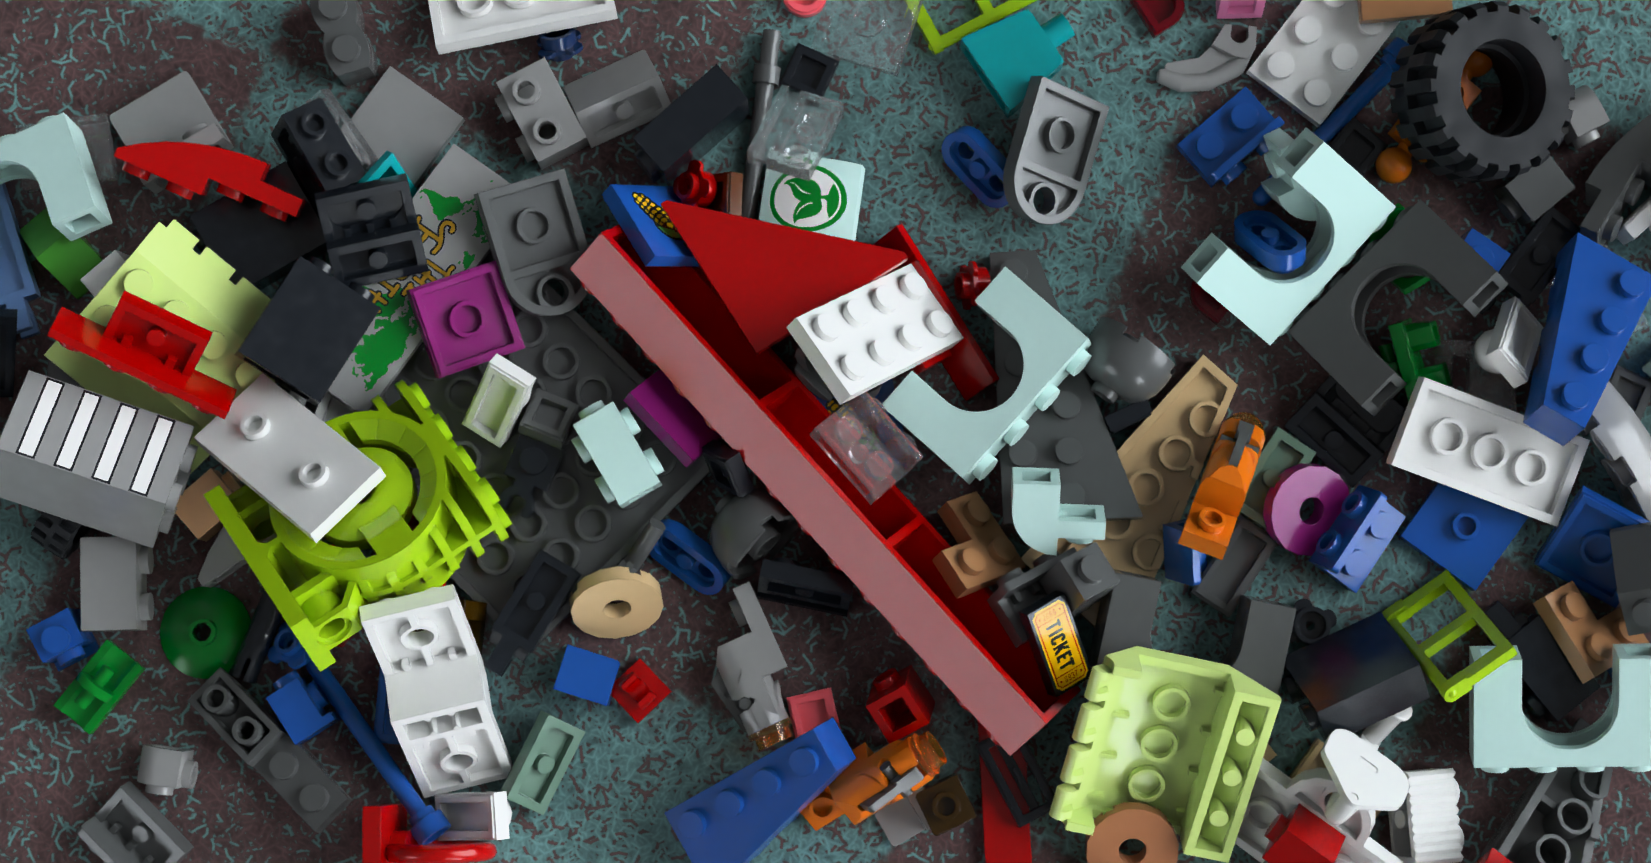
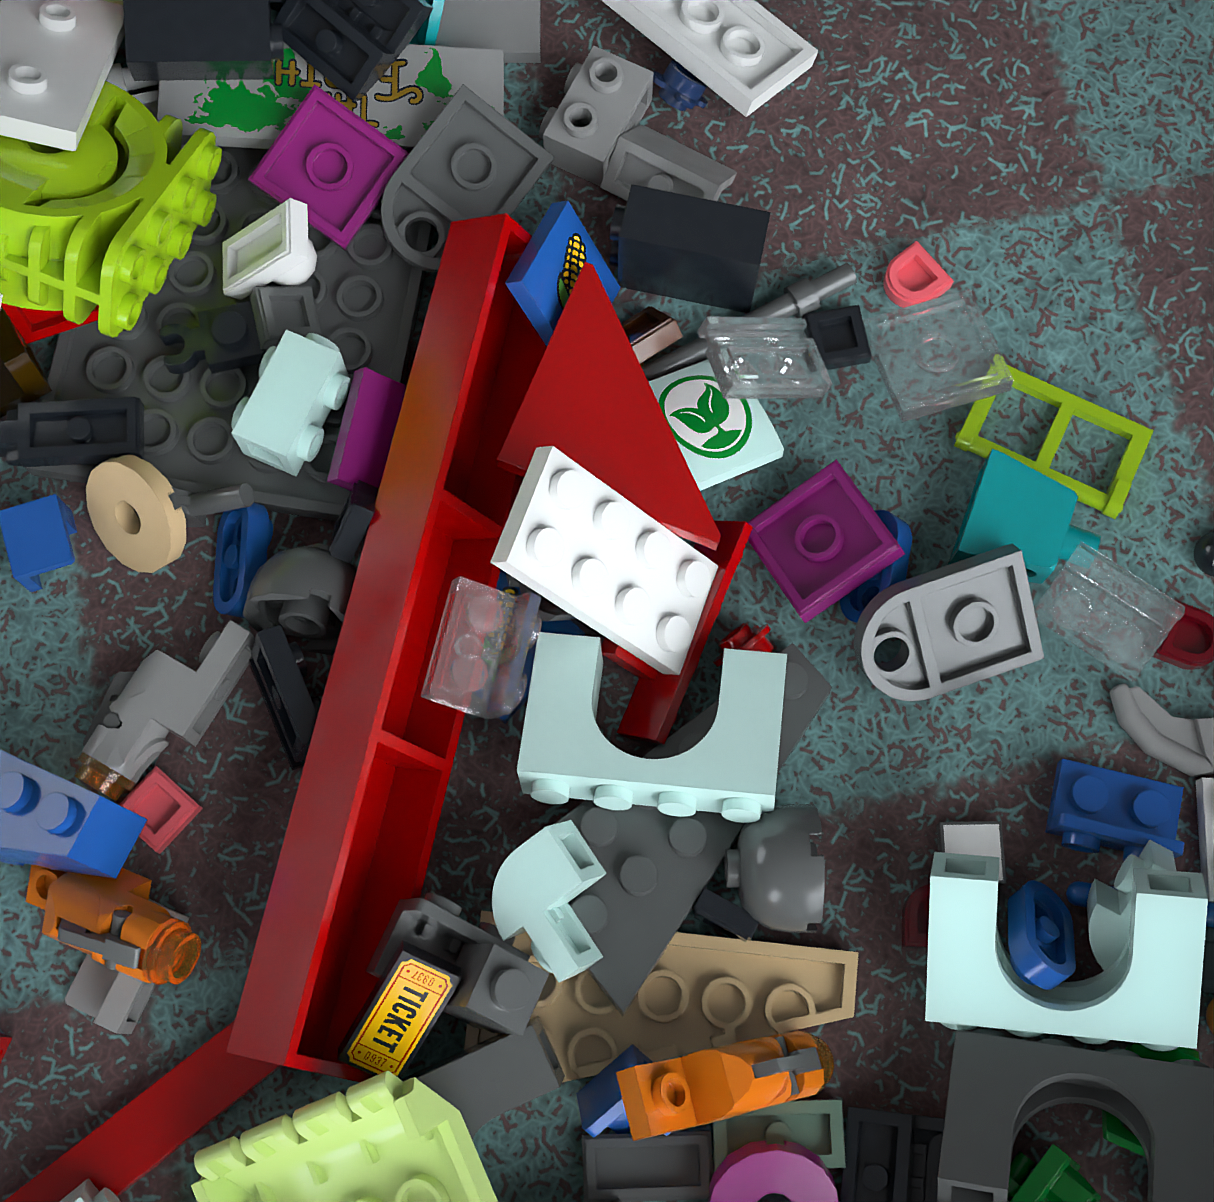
camera: 55 degrees right, 10 degrees down
(639, 690) = (64, 609): red tile -> none
(695, 185) = (636, 302): red plate -> none
(899, 703) = (222, 889): red brick -> none
(941, 187) = (822, 541): none -> magenta tile
(945, 805) = (140, 1025): dark brown bracket -> none
(982, 547) = (455, 859): medium nougat plate -> none
(1036, 810) = (204, 1136): black tile -> none
(1110, 47) = (1107, 611): none -> clear plate
(1188, 237) = (973, 838): none -> white tile

